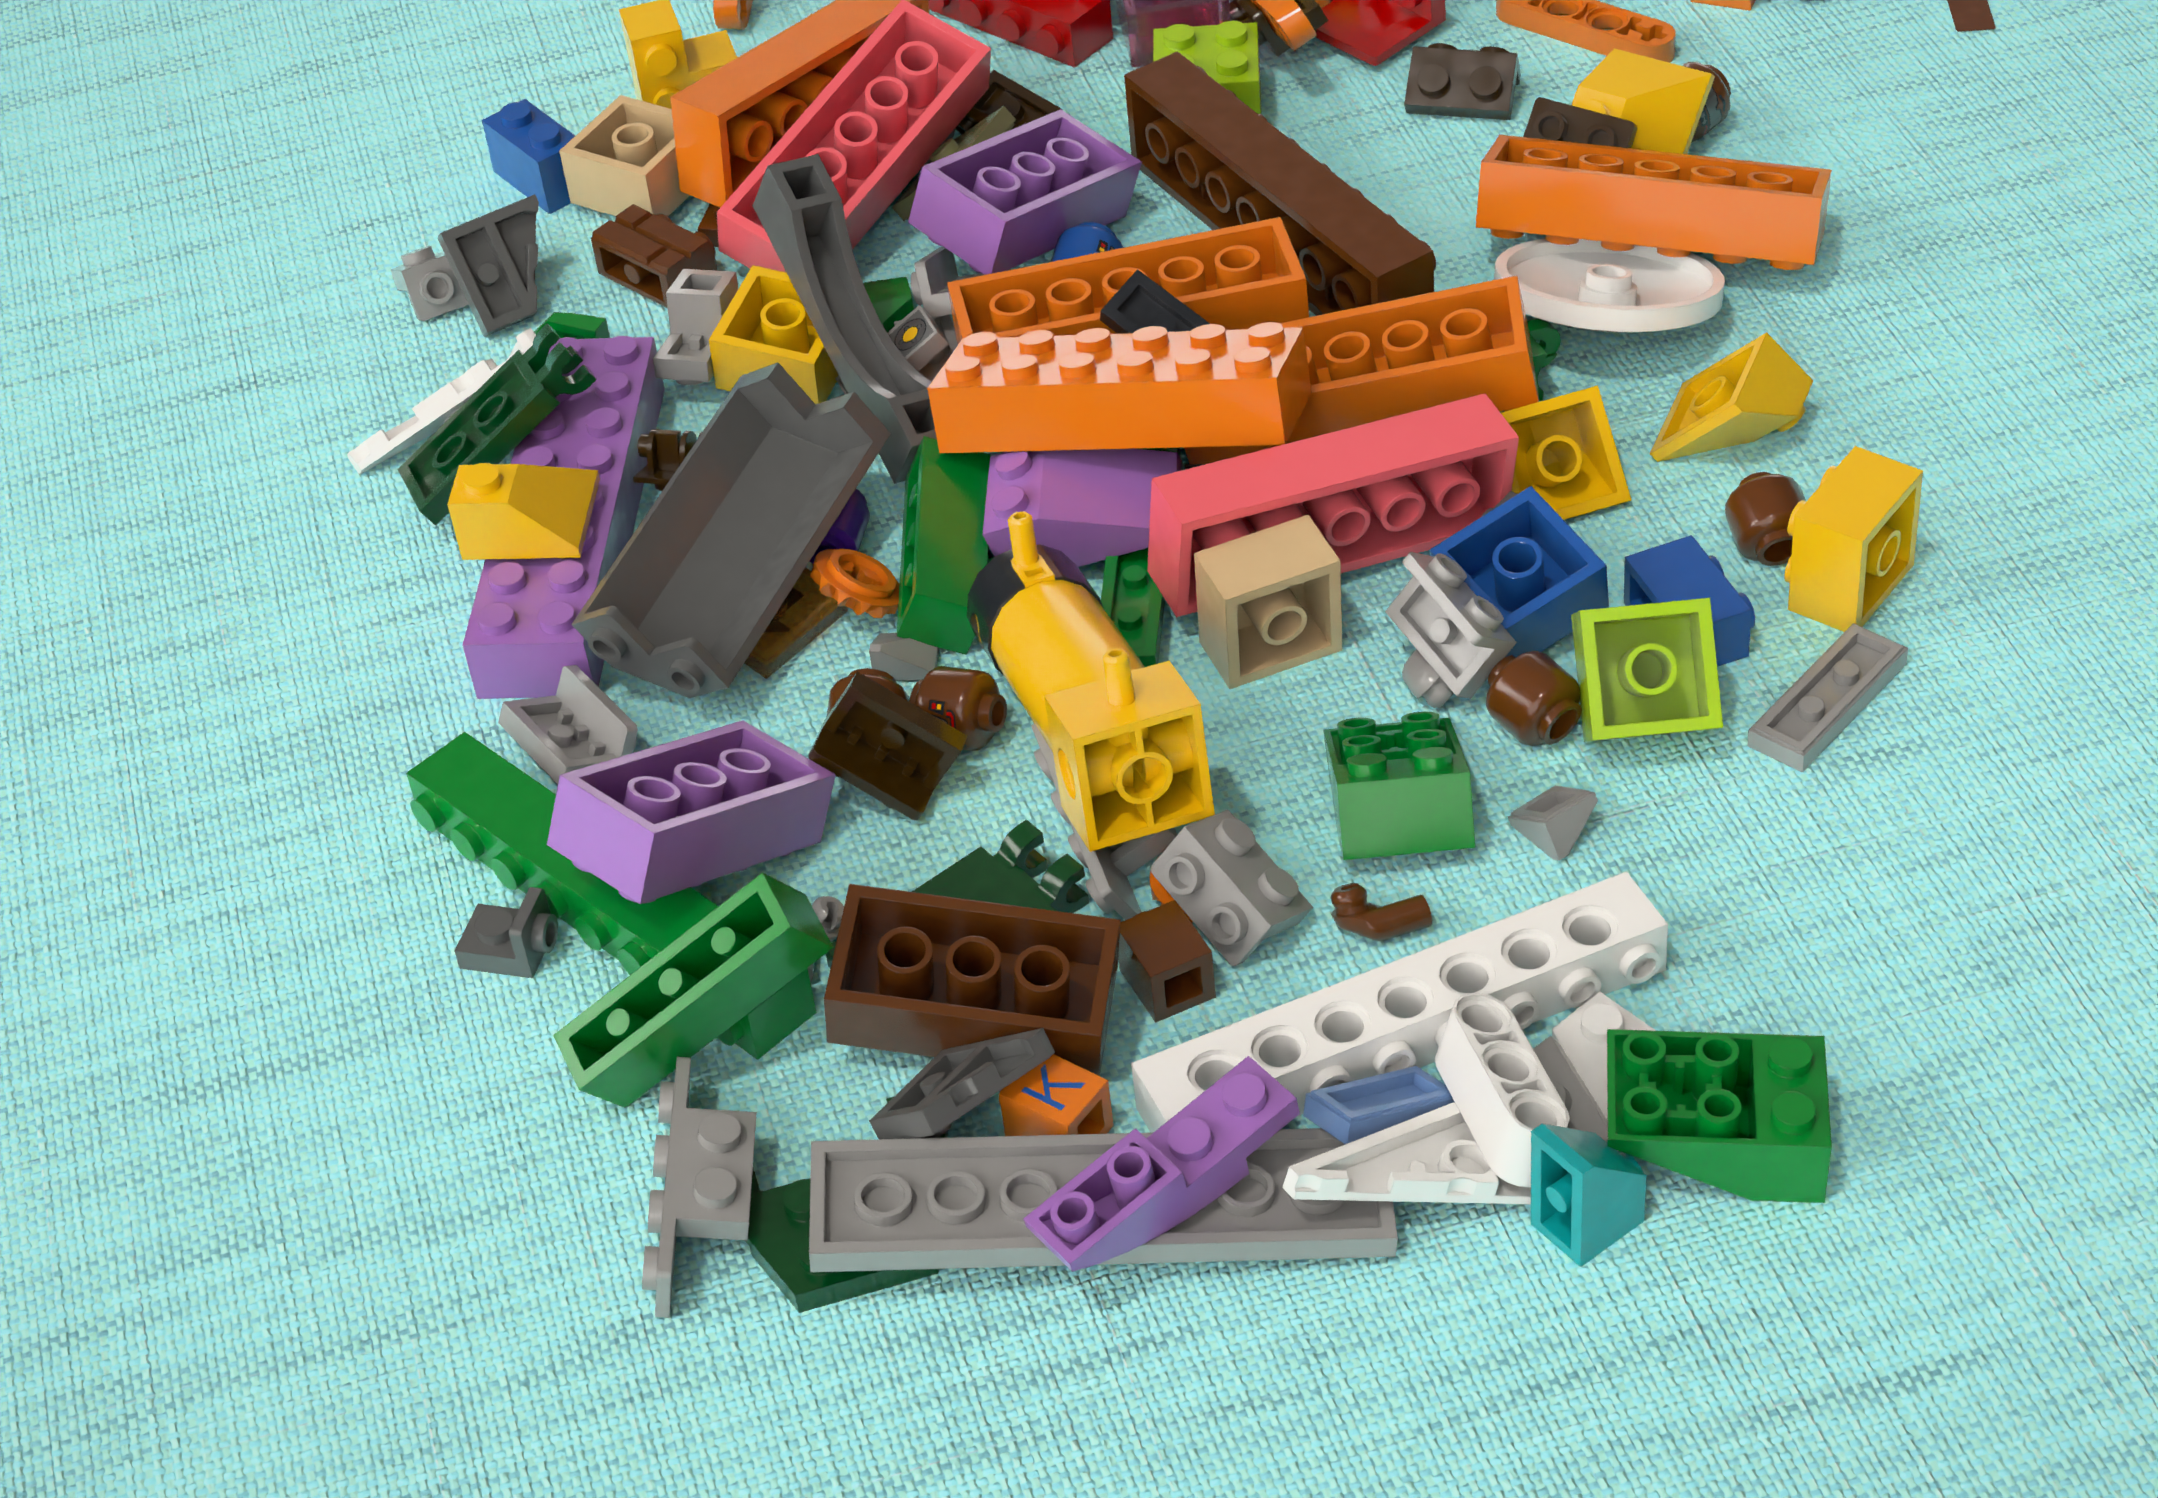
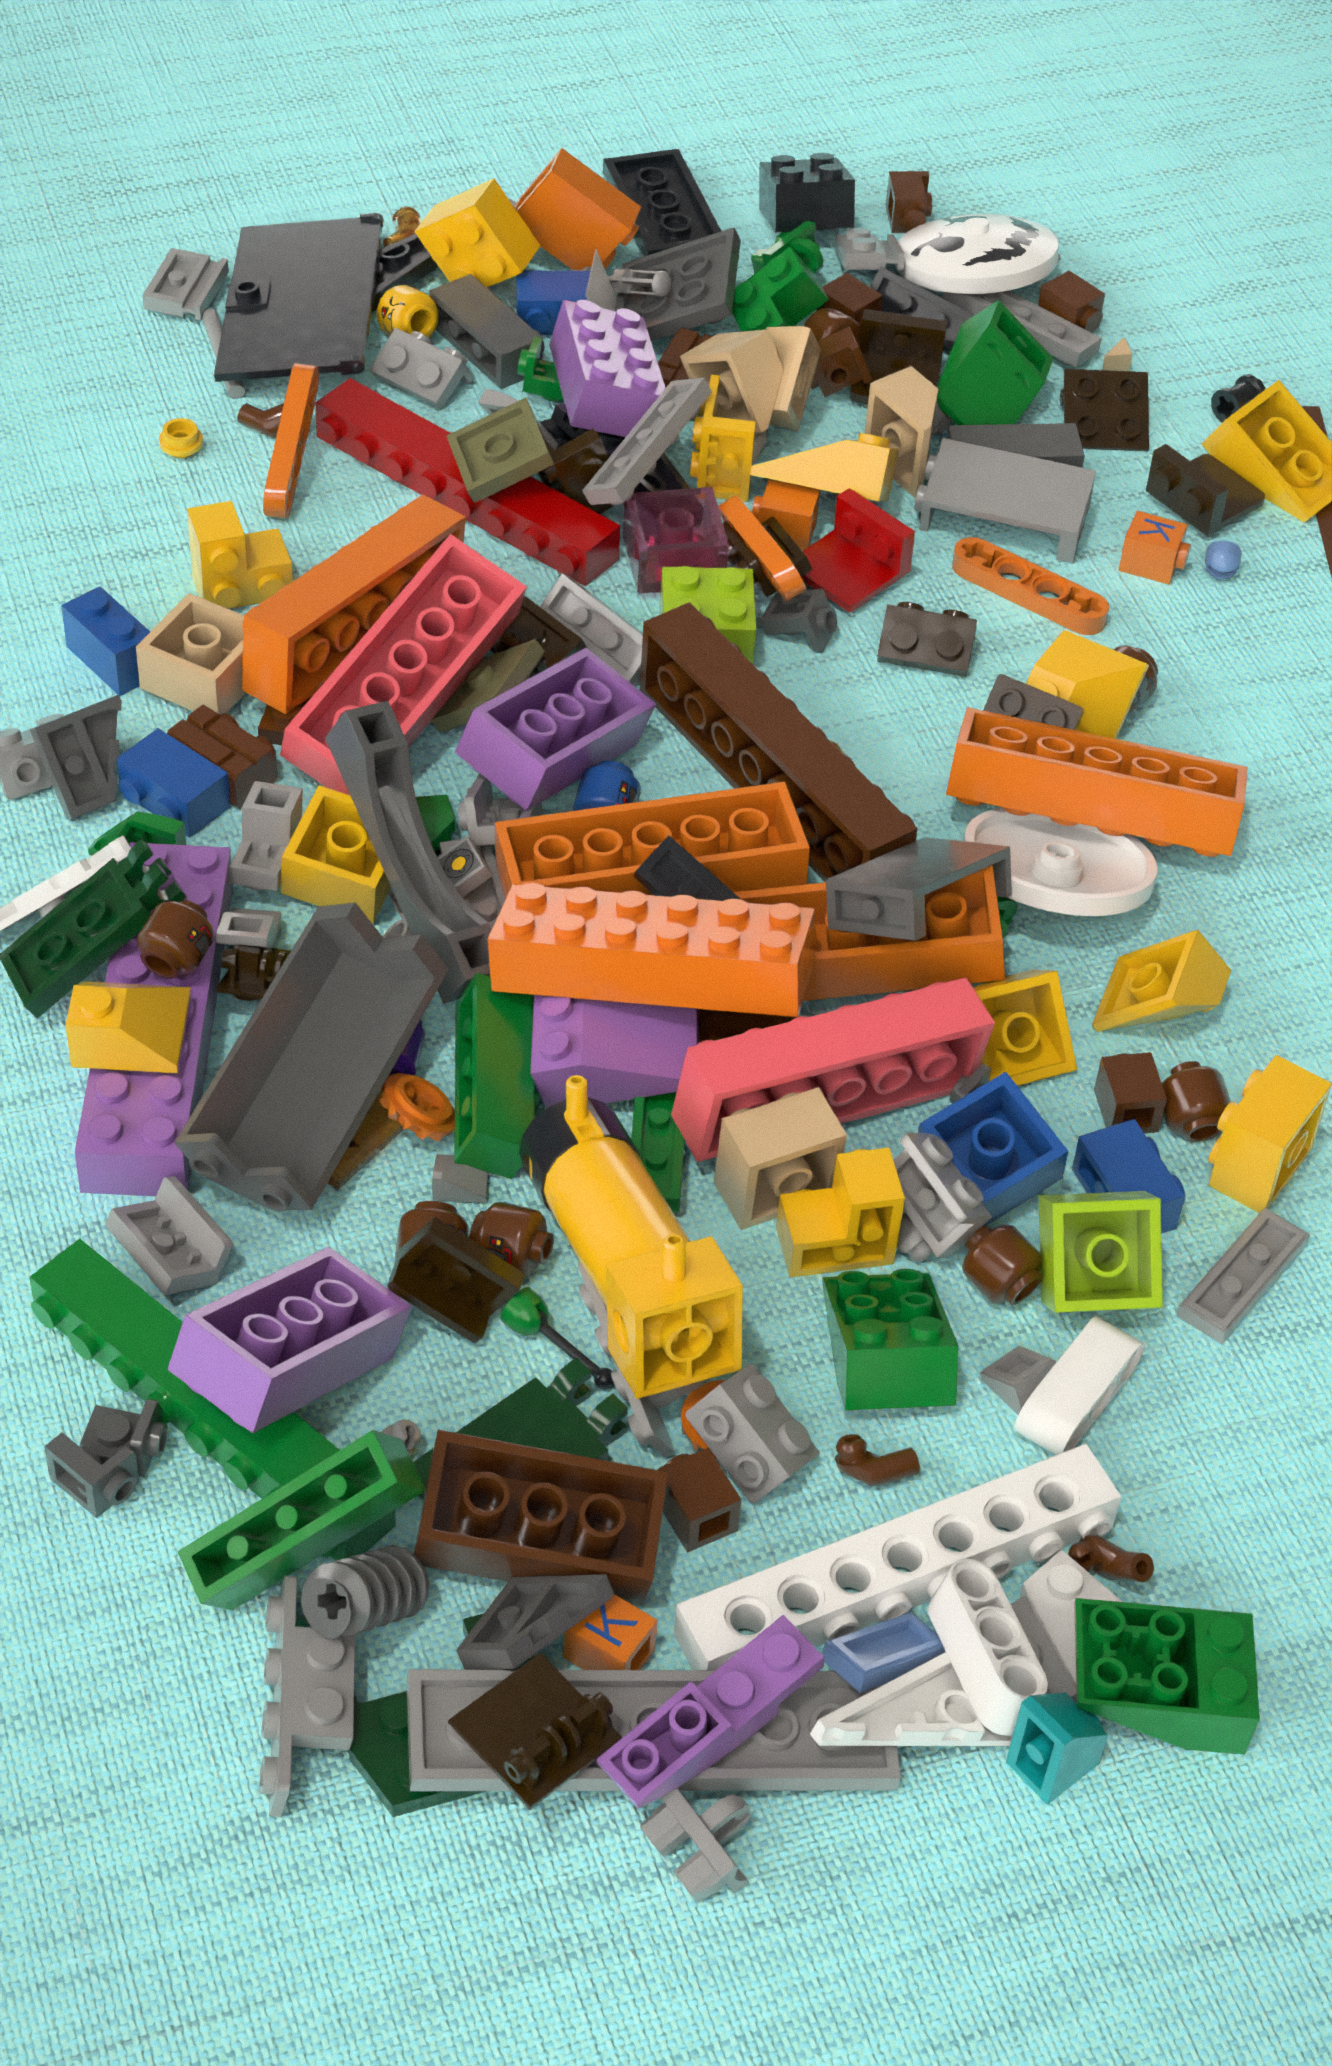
camera: 10 degrees left, 5 degrees up
(466, 978) = (86, 1478): none -> dark grey bracket
(580, 420) = (175, 938): none -> reddish brown head
(600, 282) = (173, 781): none -> blue brick
(672, 415) = (249, 928): none -> light grey slope
(767, 1066) = (364, 1592): none -> dark grey piece
(956, 1195) = (536, 1730): none -> dark brown hinge
(976, 784) = (529, 1314): none -> hinge
(1080, 96) = (598, 625): none -> light grey plate
(1168, 1303) = (710, 1866): none -> light grey hips
(1316, 67) = (804, 613): none -> dark grey bracket
(1345, 669) = (846, 1224): none -> yellow brick
(1396, 312) = (889, 891): none -> dark grey panel
(1625, 817) = (1079, 1386): none -> white beam
(1659, 1000) = (1111, 1560): none -> reddish brown arm
(1692, 505) = (1130, 1090): none -> reddish brown brick

